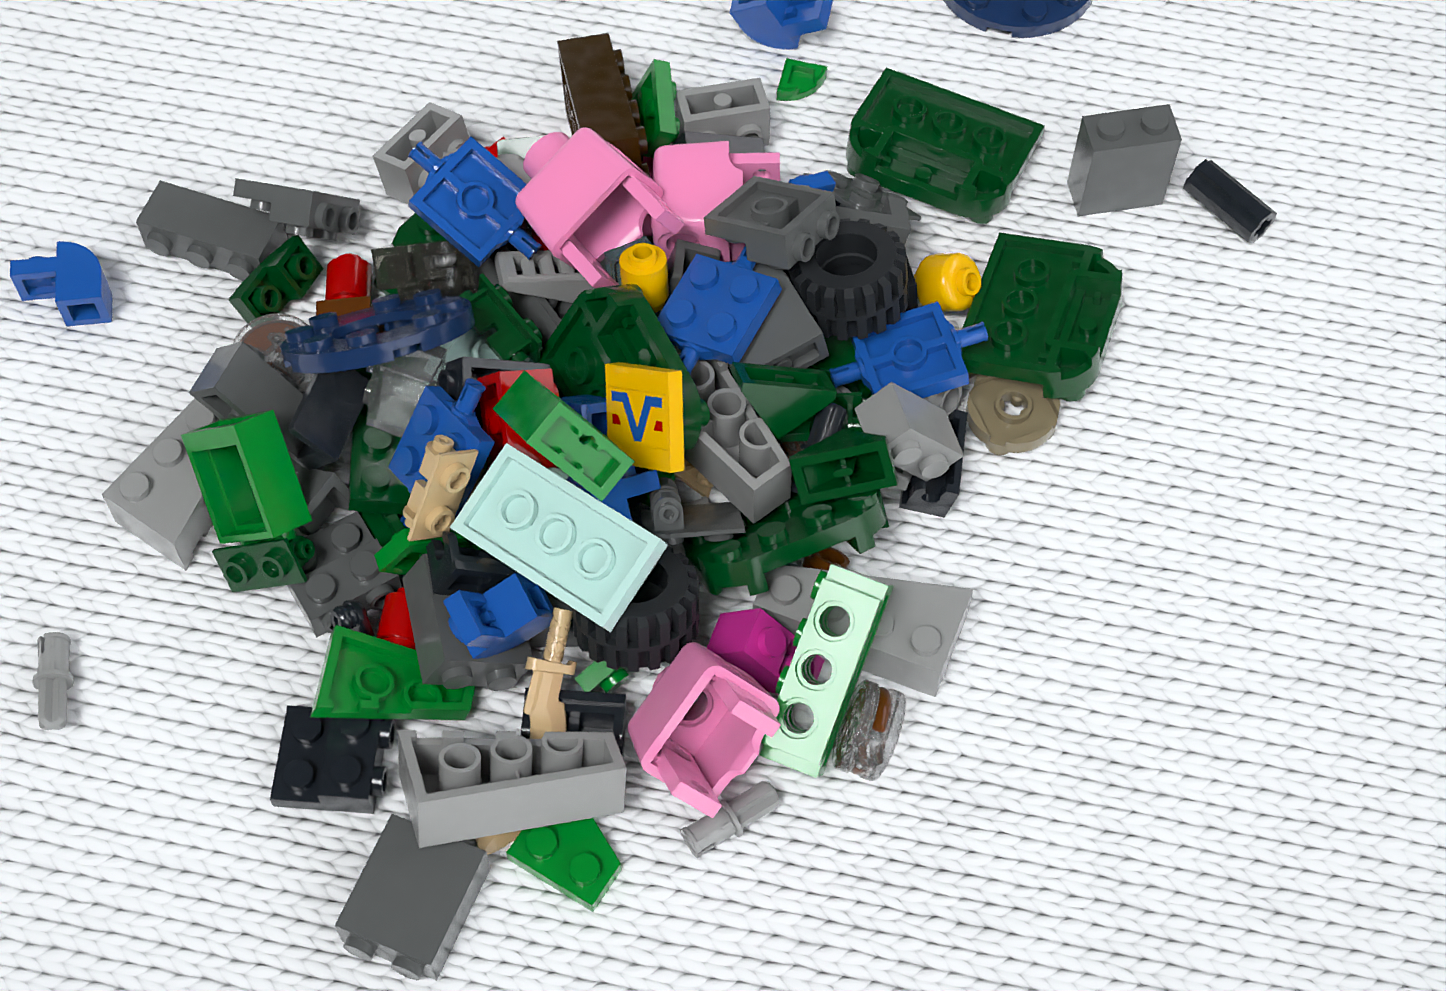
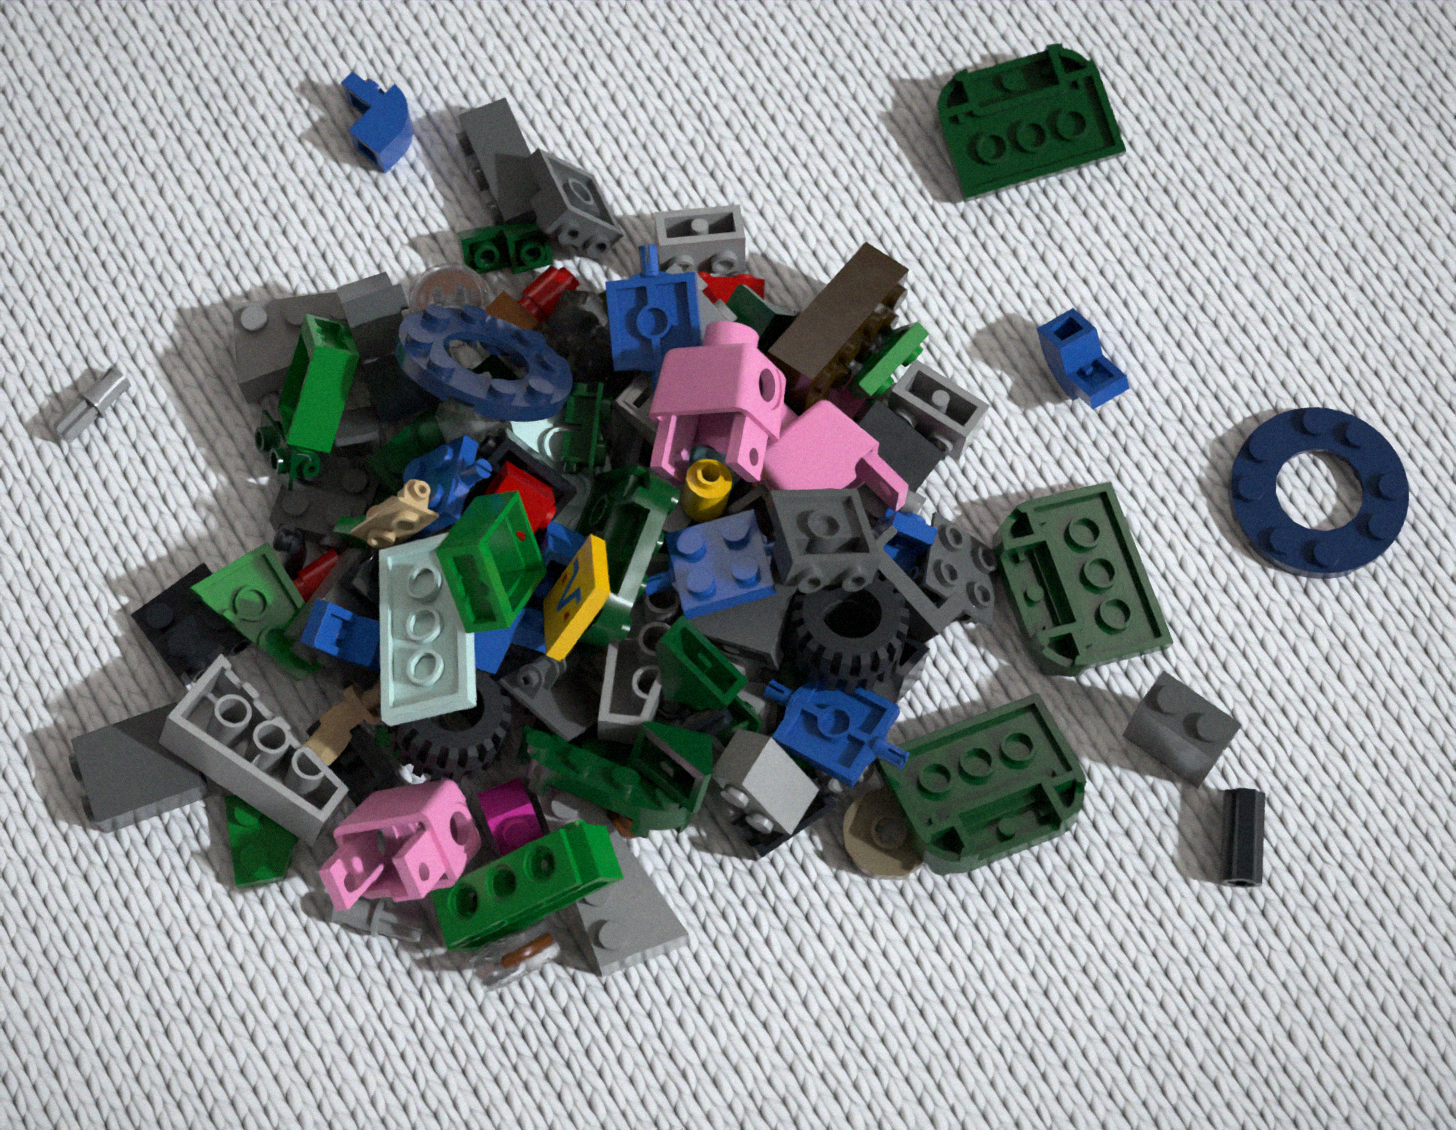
camera: 50 degrees right, 10 degrees up
(800, 80) = (1042, 429): green tile -> none
(949, 280) = (948, 693): yellow head -> none

